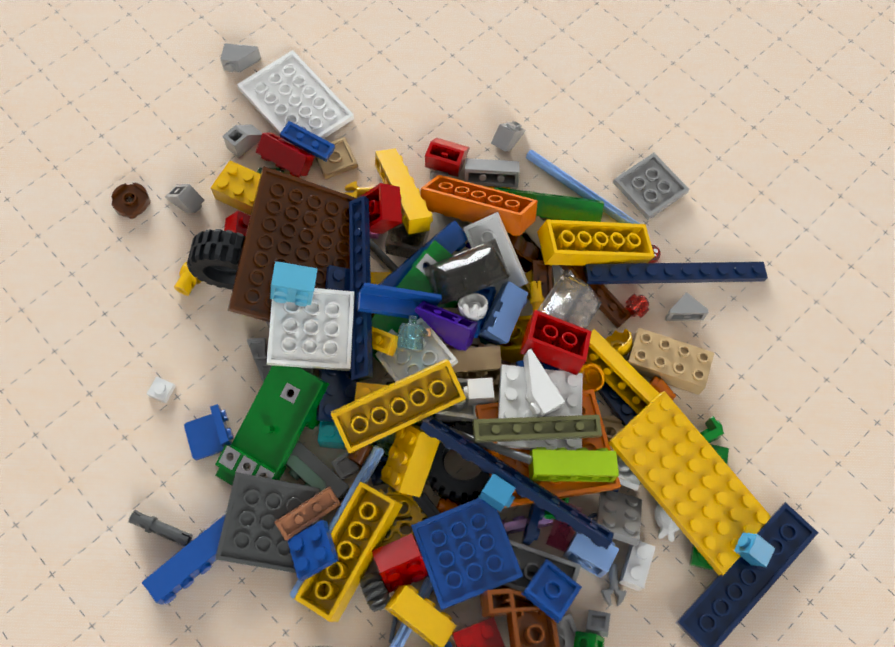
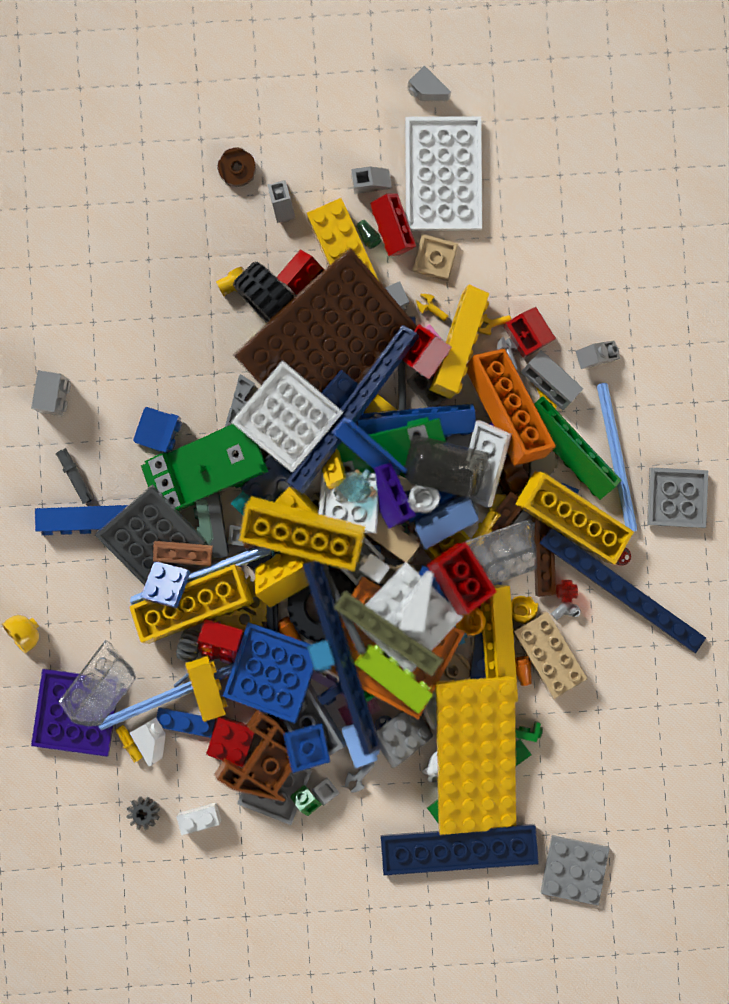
camera: 40 degrees right, 20 degrees up
(88, 471) = (50, 393): none -> light grey brick
(161, 389) = (147, 363): white plate -> none
(293, 283) = (295, 378): medium azure brick -> none
(307, 141) = (420, 227): blue plate -> none
(413, 171) = (492, 323): none -> yellow bar
(636, 566) = (386, 778): white brick -> none
(650, 319) = (566, 609): none -> light grey arm
(687, 310) = (604, 625): light grey slope -> none
(754, 549) = (476, 837): dark azure brick -> none
(847, 515) = (575, 870): none -> light grey plate

